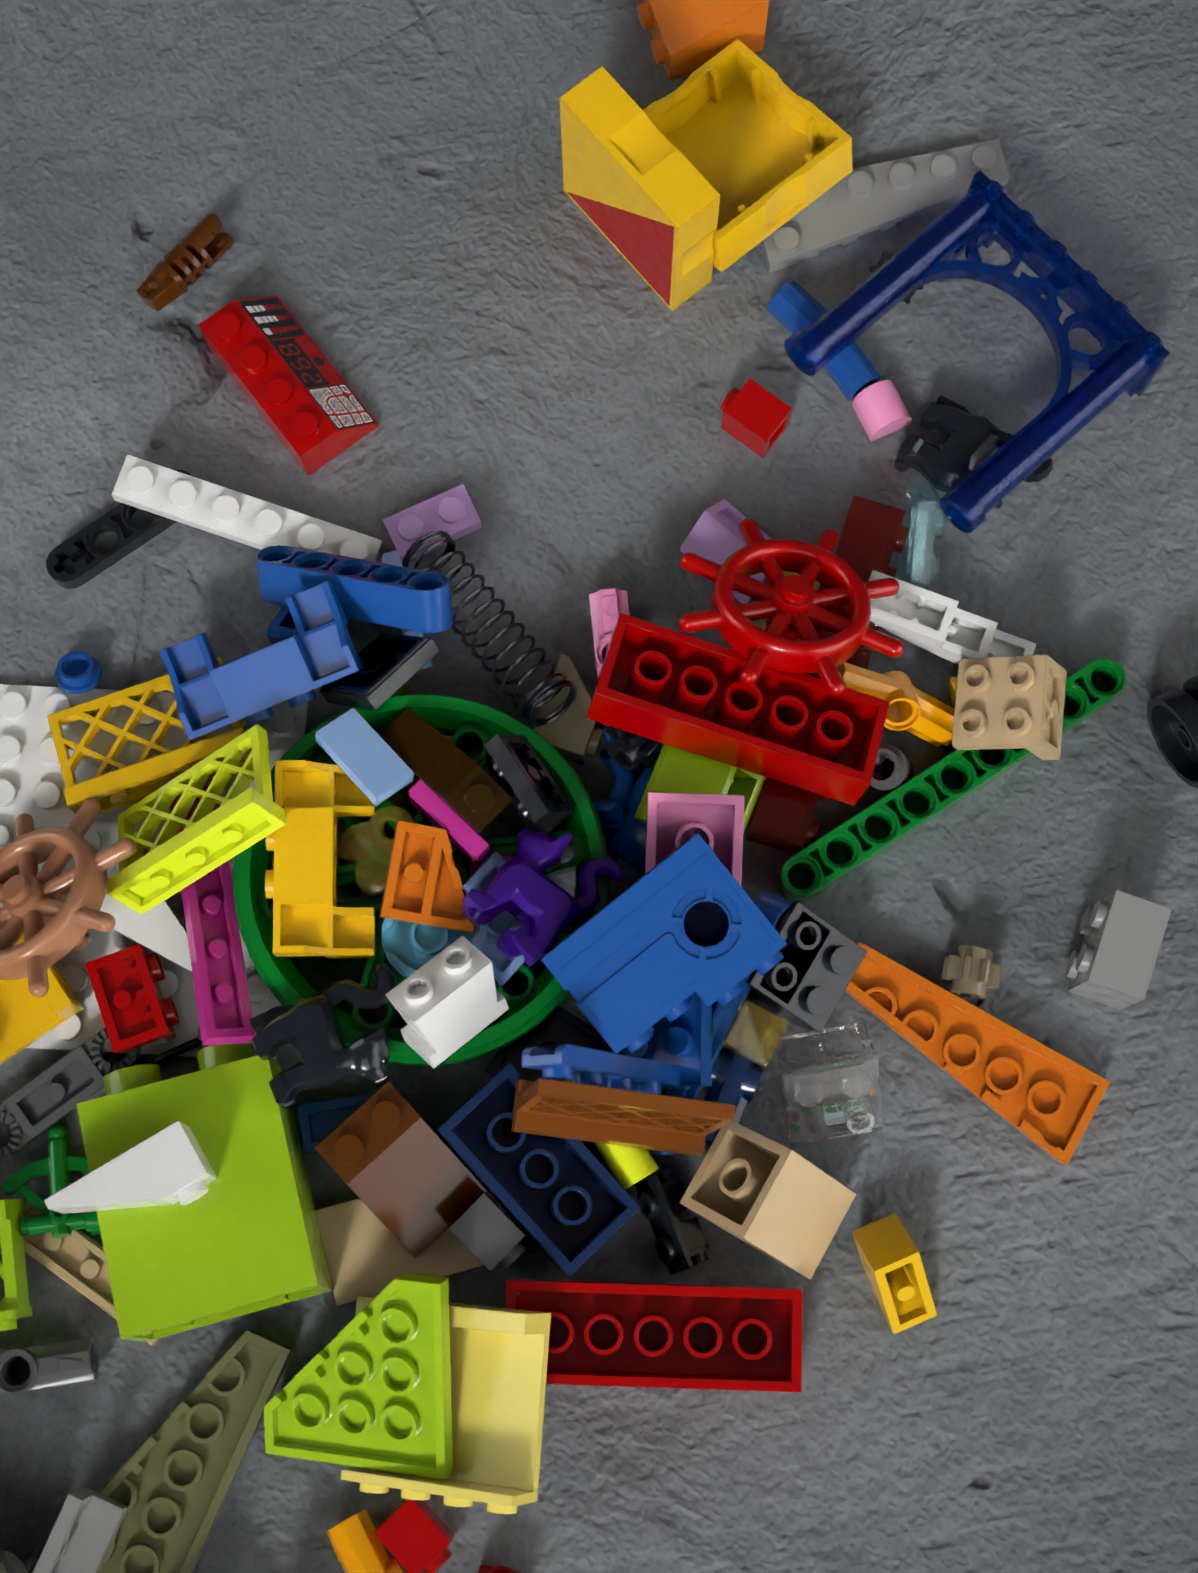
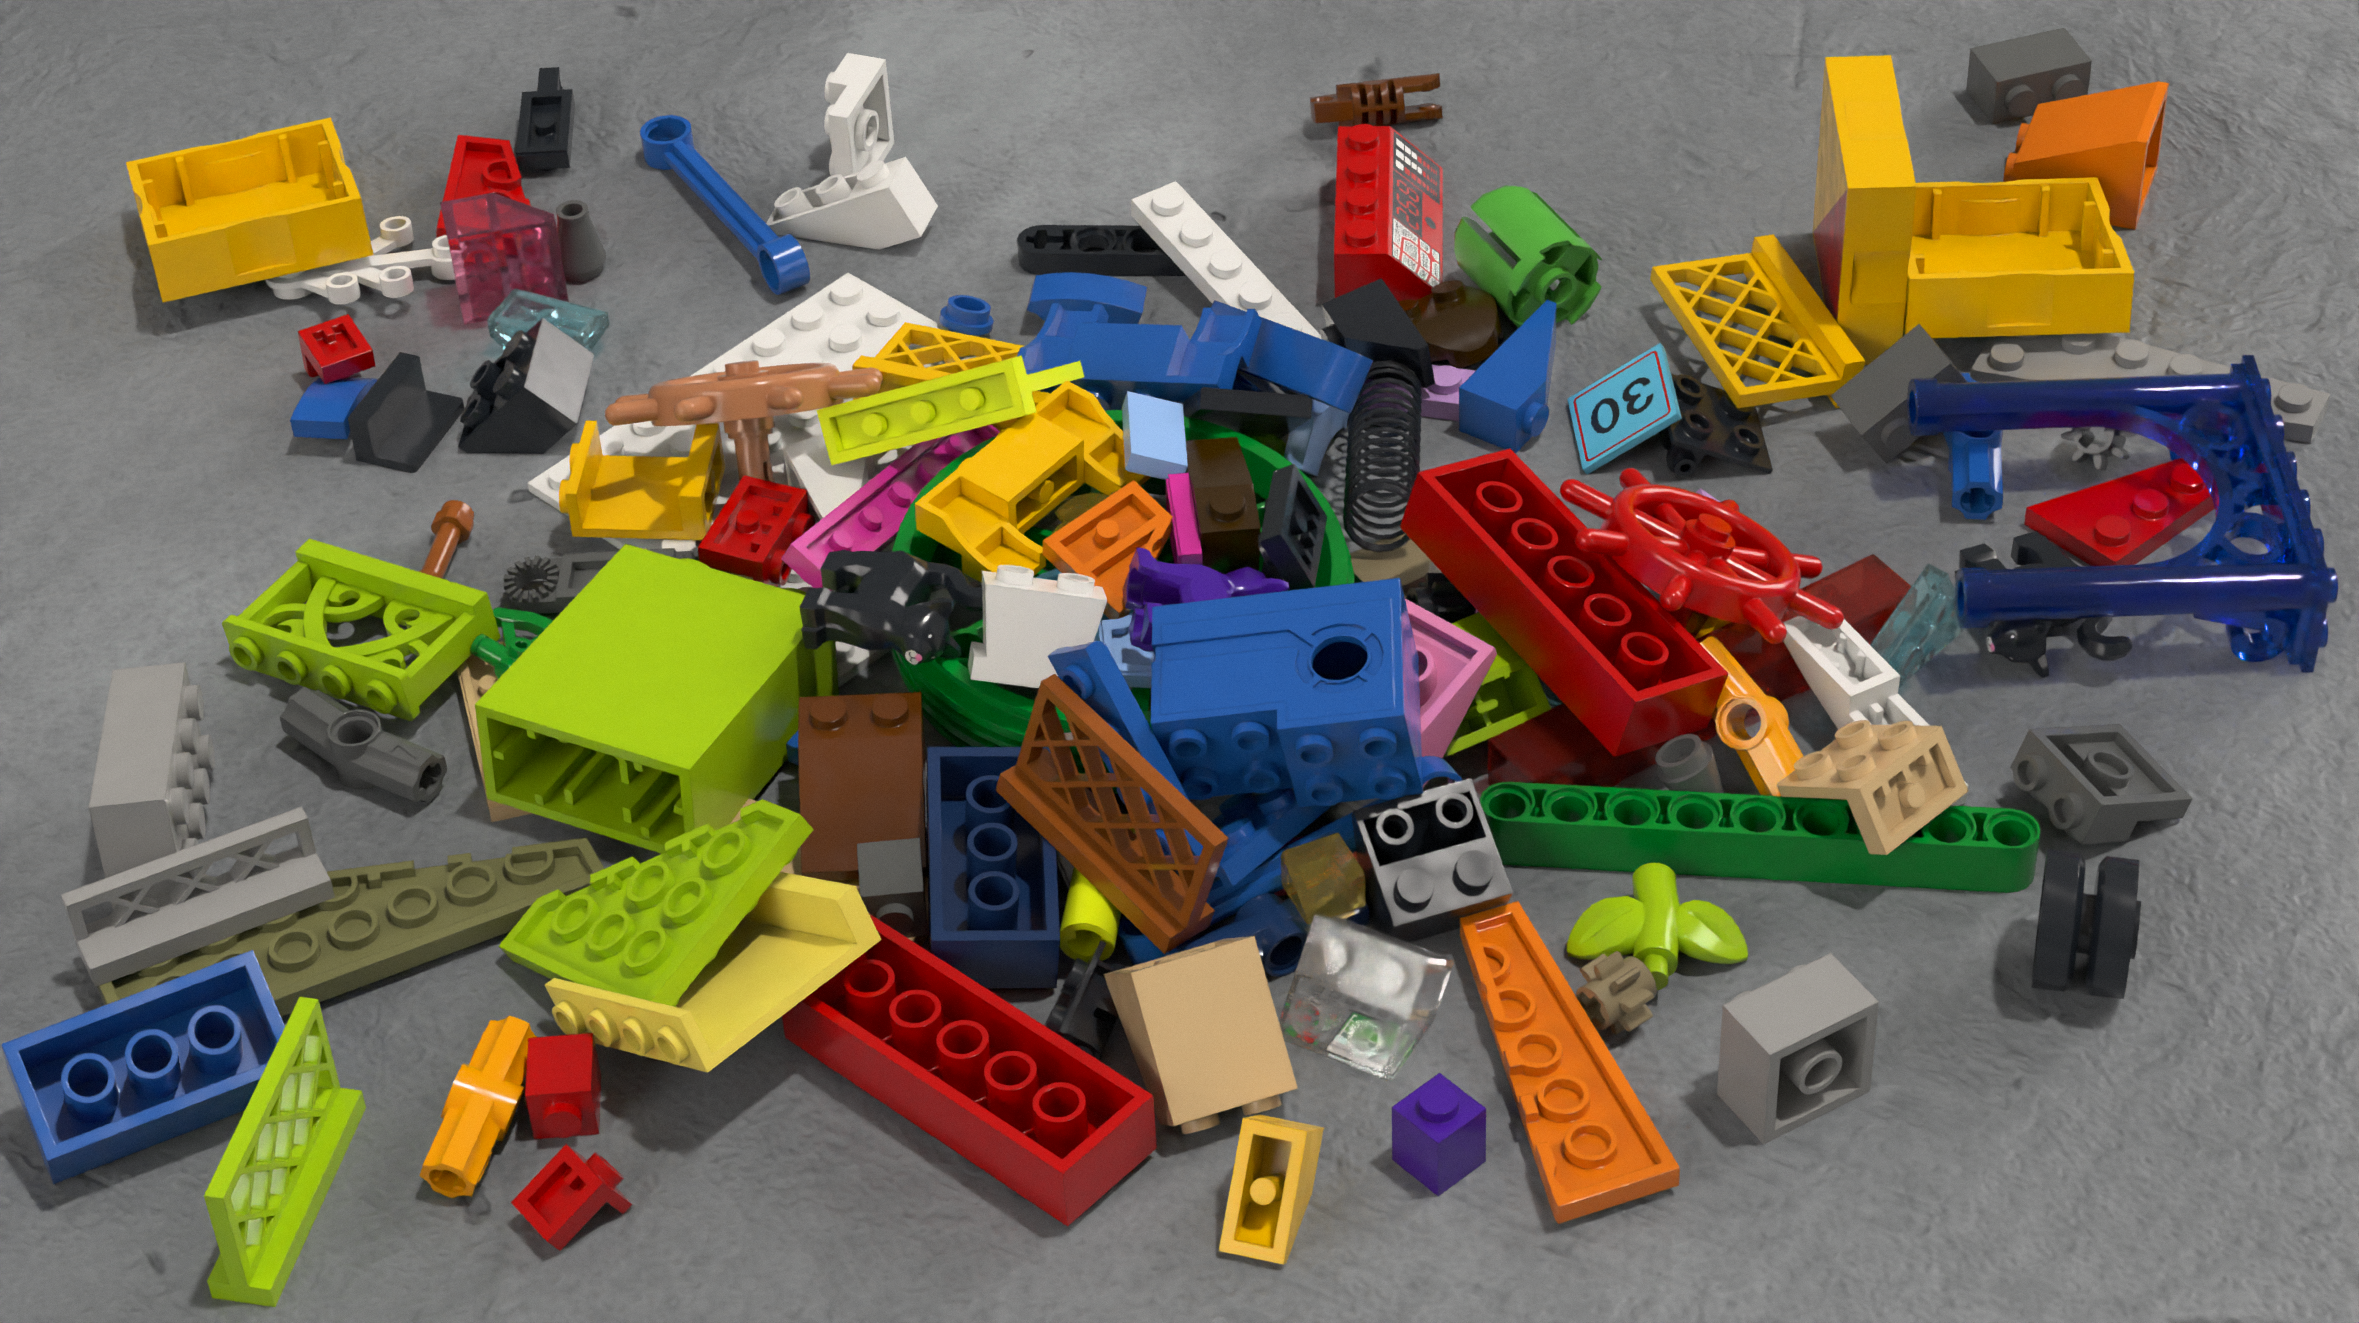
camera: 40 degrees right, 35 degrees down
(141, 599) = (1080, 292): none -> blue slope
(153, 1173) = (618, 597): white slope -> none
(391, 516) = (1379, 329): none -> black slope
(406, 457) = (1456, 323): none -> dark brown slope
(423, 365) = (1526, 256): none -> bright green cylinder
(504, 484) = (1510, 390): none -> blue slope
(590, 459) = (1624, 408): none -> medium azure piece
(640, 298) = (1794, 312): none -> yellow fence
(647, 431) = (1712, 428): none -> black hinge
(754, 417) = (1834, 466): red brick -> none
(759, 332) = (1878, 394): none -> dark grey brick
(881, 409) = (1981, 520): bright pink brick -> none
(948, 898) = (1657, 927): none -> lime plant
(950, 338) = (2124, 516): none -> red wing
(960, 1162) = (1438, 1134): none -> dark purple brick
(1109, 589) = (2096, 781): none -> dark grey plate

